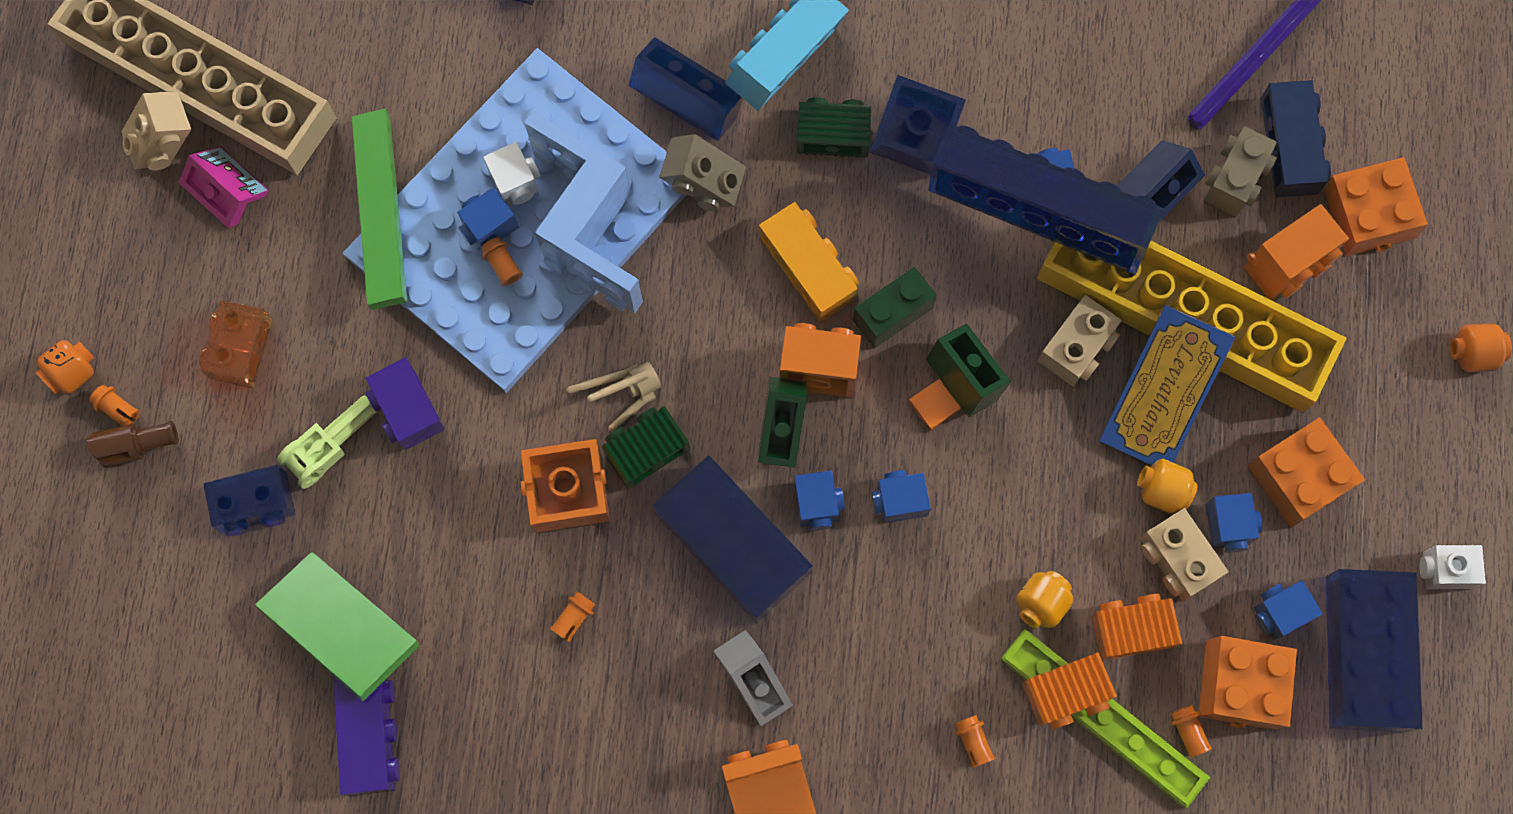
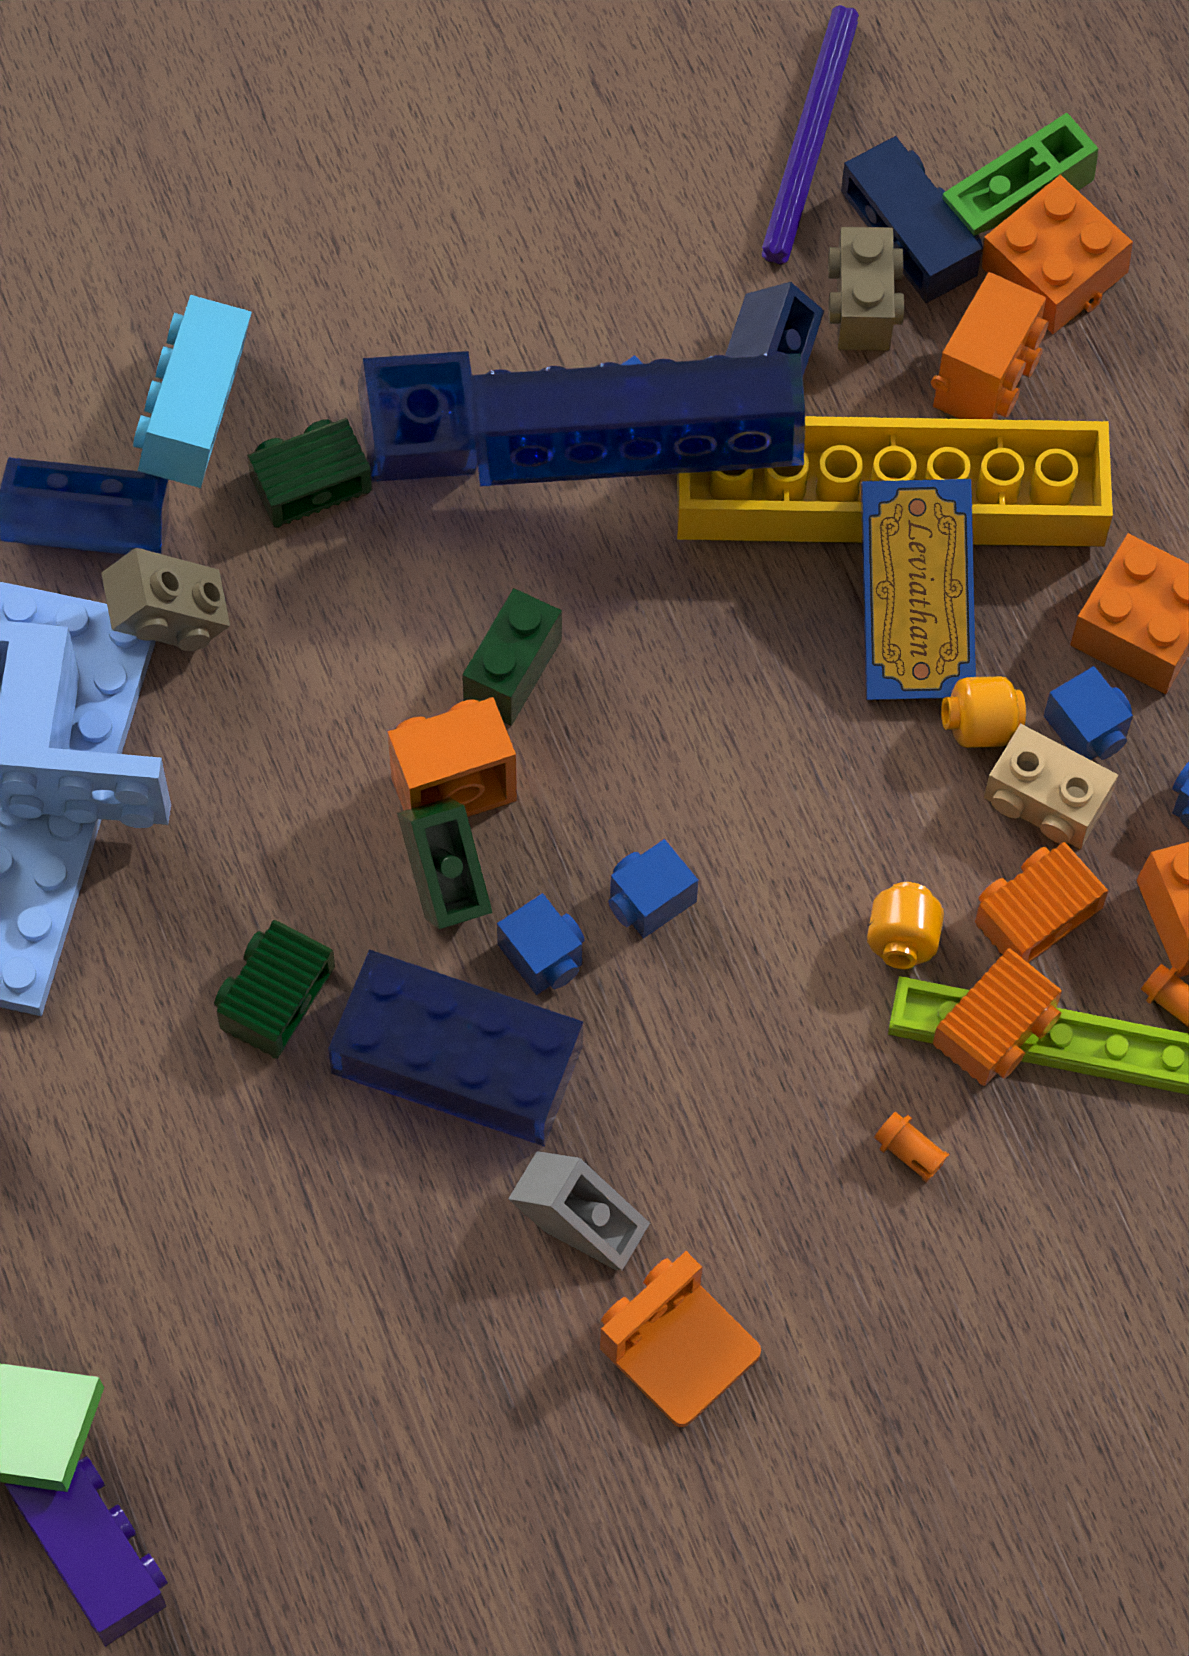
camera: 30 degrees left, 10 degrees down
(565, 486) = (194, 1085): orange brick -> none
(573, 616) = (292, 1253): orange pin -> none
(639, 381) = (216, 910): tan plant -> none
(809, 261) = (366, 652): light orange brick -> none
(934, 405) = (630, 756): orange tile -> none
(968, 370) = (651, 687): dark green brick -> none
(1080, 340) = (775, 588): tan brick -> none
(1381, 143) = (1023, 171): none -> bright green slope

